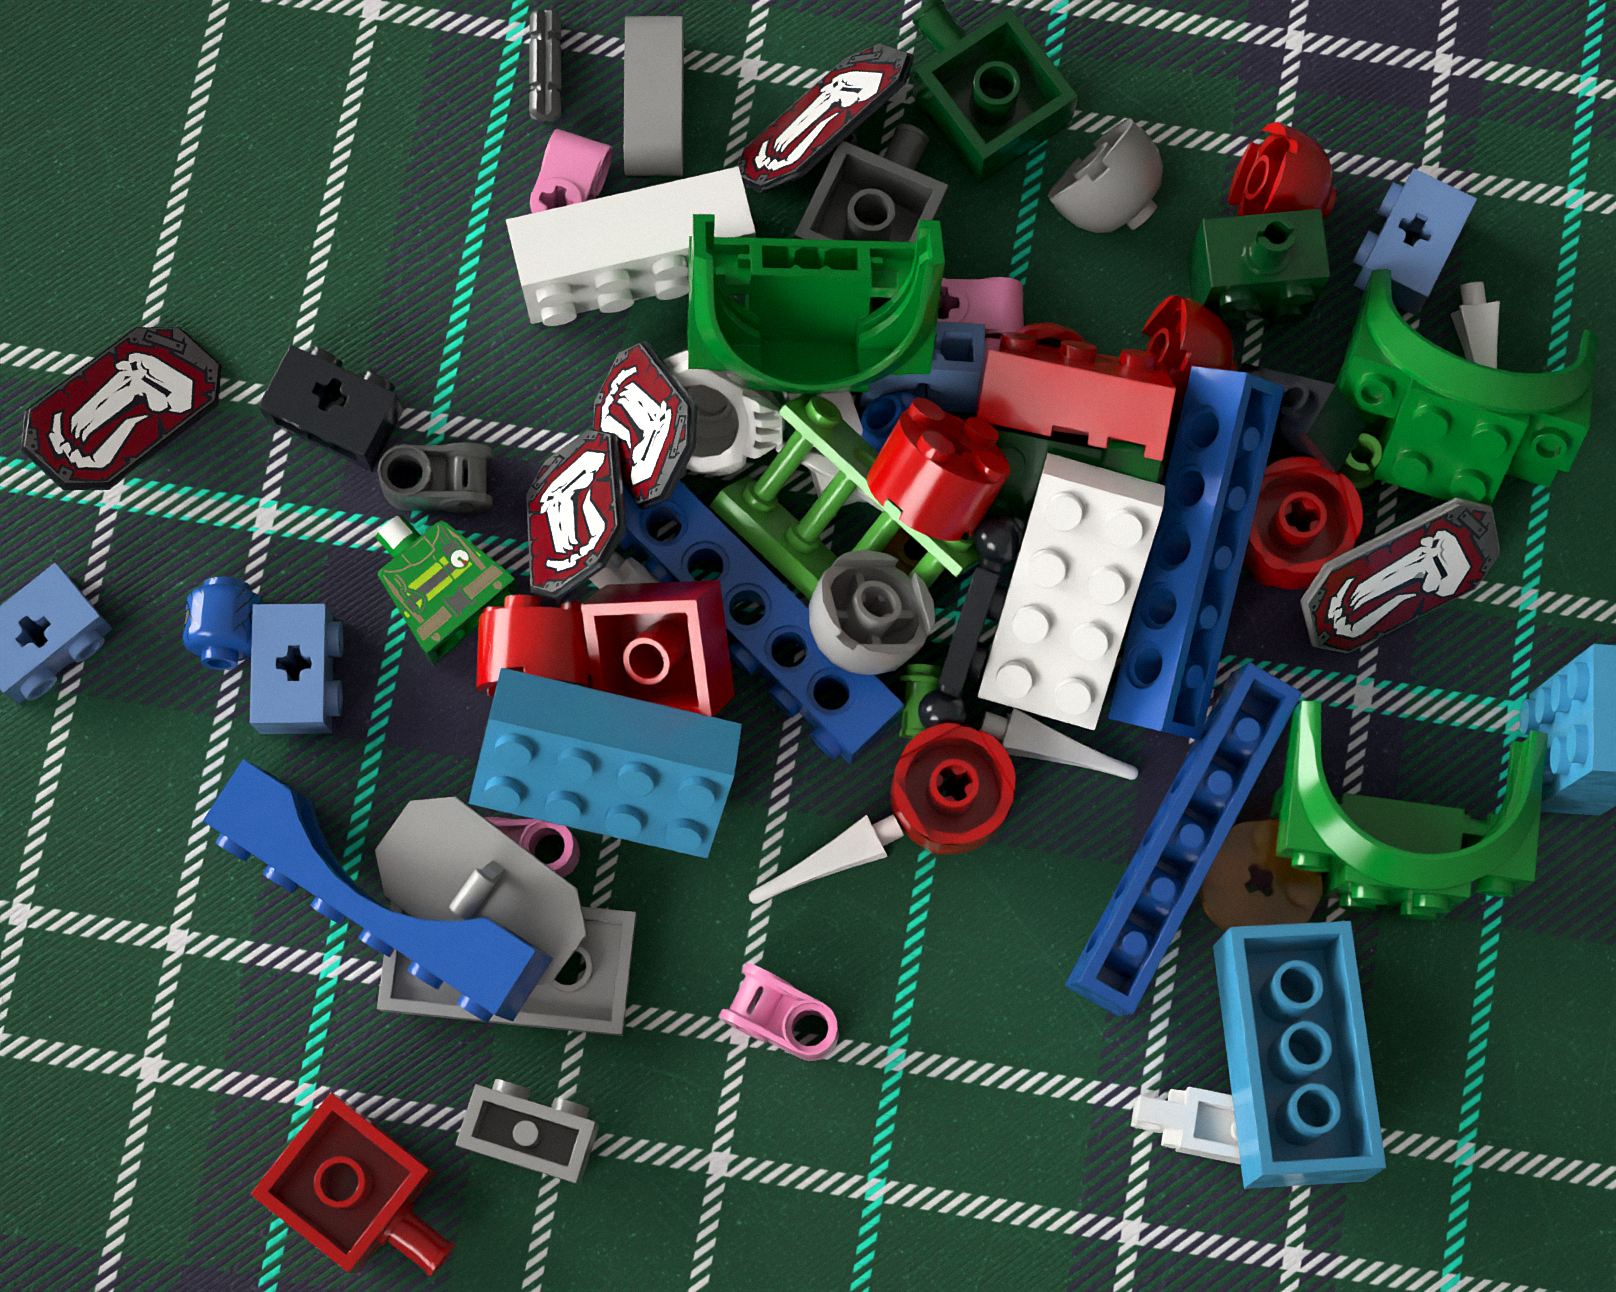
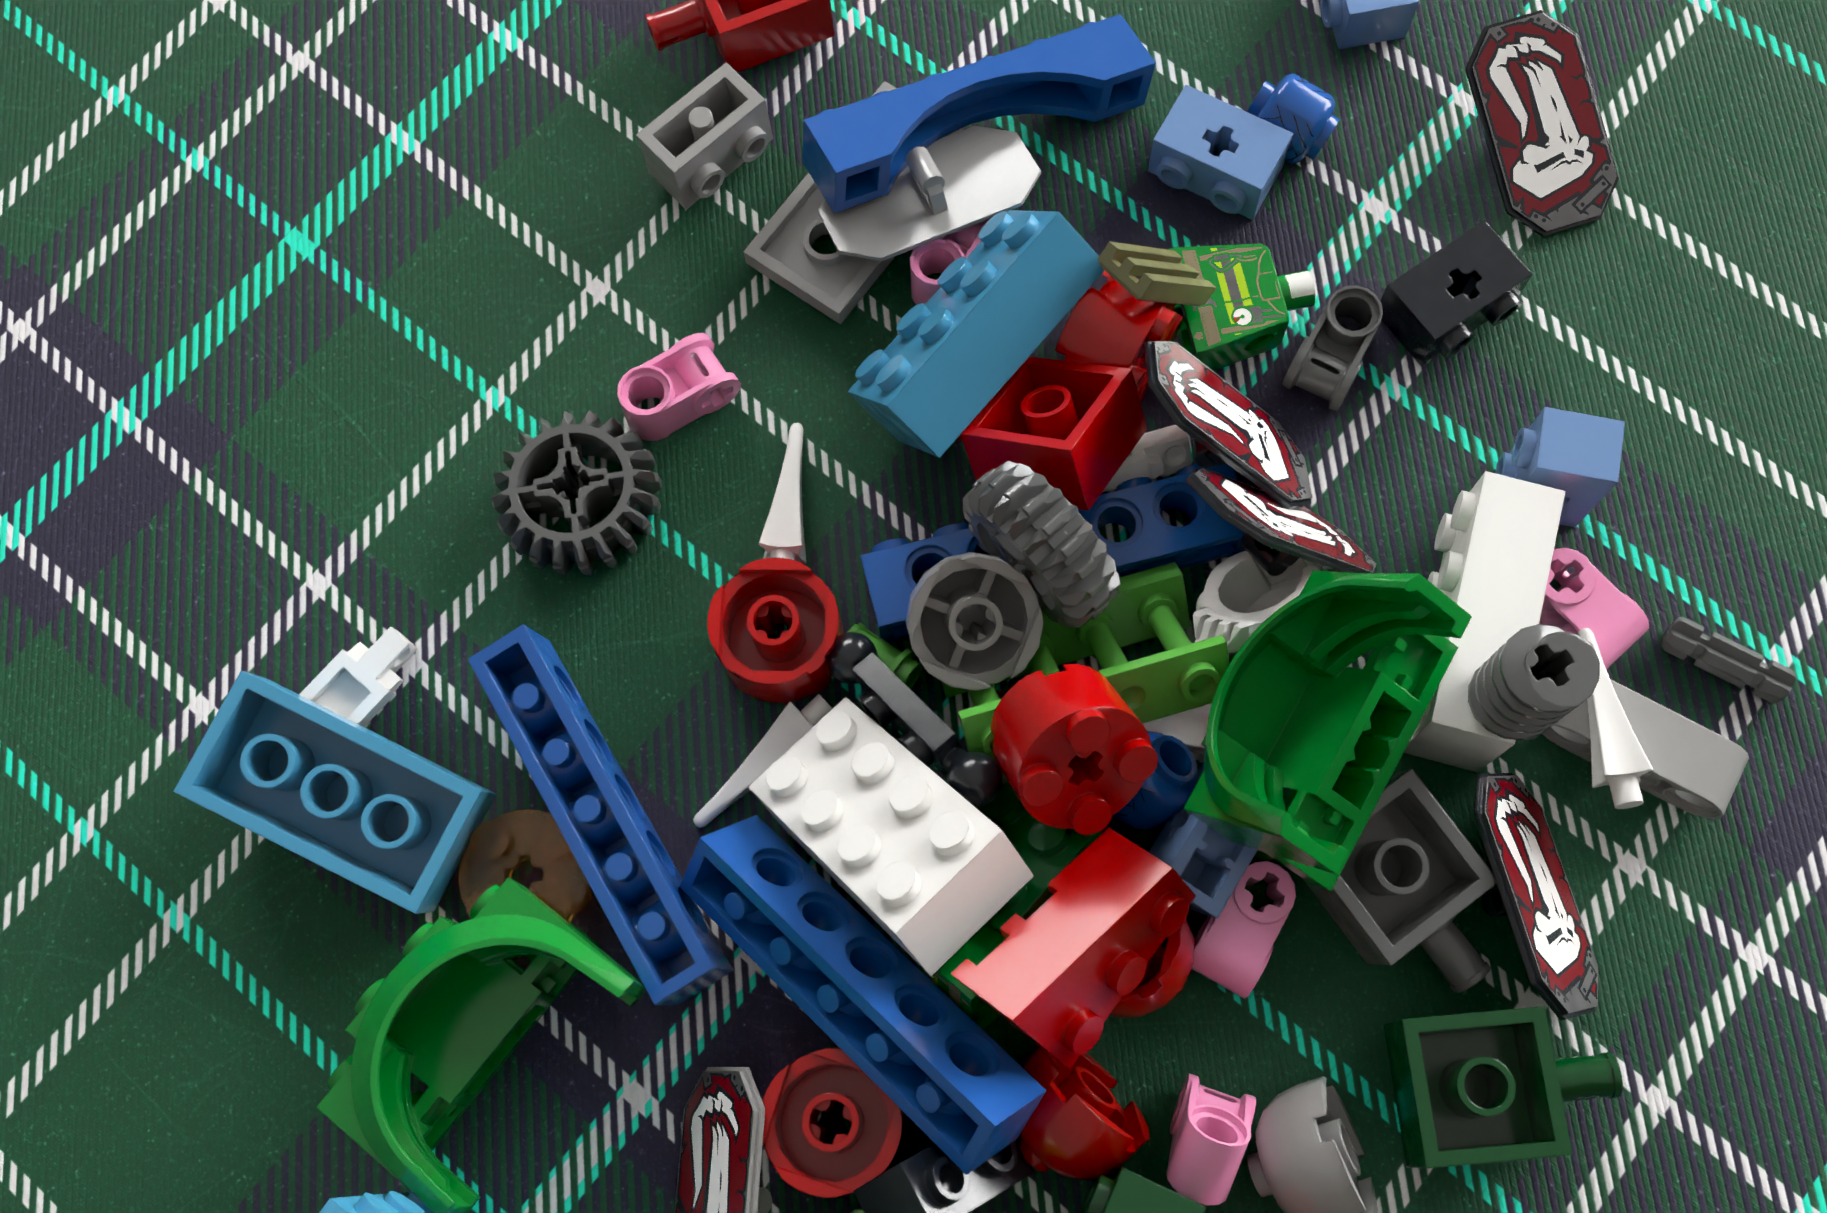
camera: 130 degrees right, 5 degrees down
(460, 621) = (1160, 274): none -> olive tile
(463, 246) = (1568, 454): none -> medium blue brick
(685, 105) = (1615, 750): none -> white piece
(705, 159) = (1533, 682): none -> dark grey piece
(779, 591) = (1046, 539): none -> dark grey gear
(967, 1007) = (530, 493): none -> dark grey gear
(1143, 257) = (1207, 1141): none -> bright pink piece

